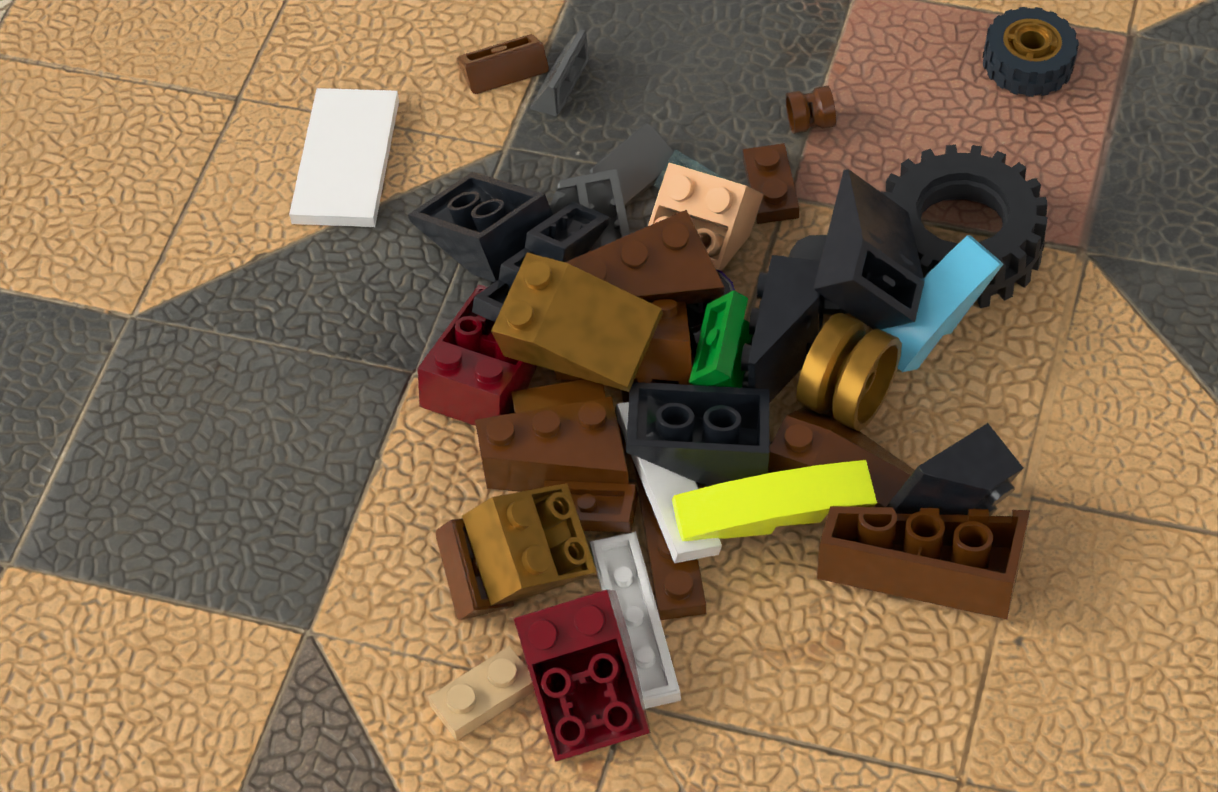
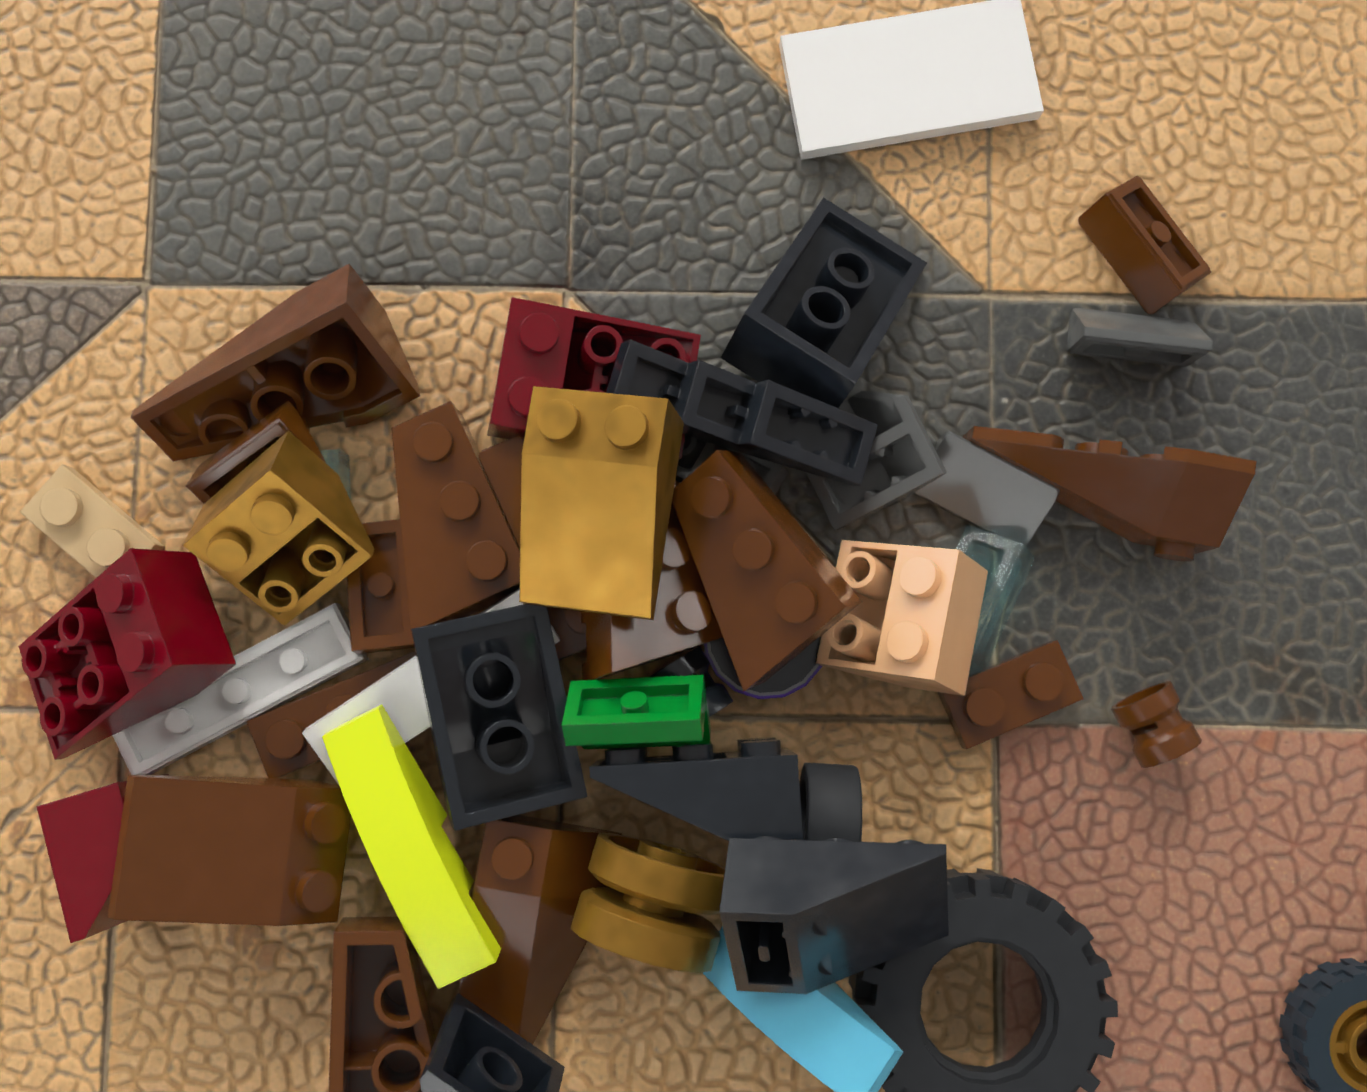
camera: 70 degrees right, 30 degrees up
(401, 507) = (318, 349): none -> reddish brown wedge
(663, 87) = (1157, 500): none -> reddish brown wedge
(727, 685) = (82, 851): none -> dark red slope
(749, 590) = (230, 851): none -> reddish brown slope

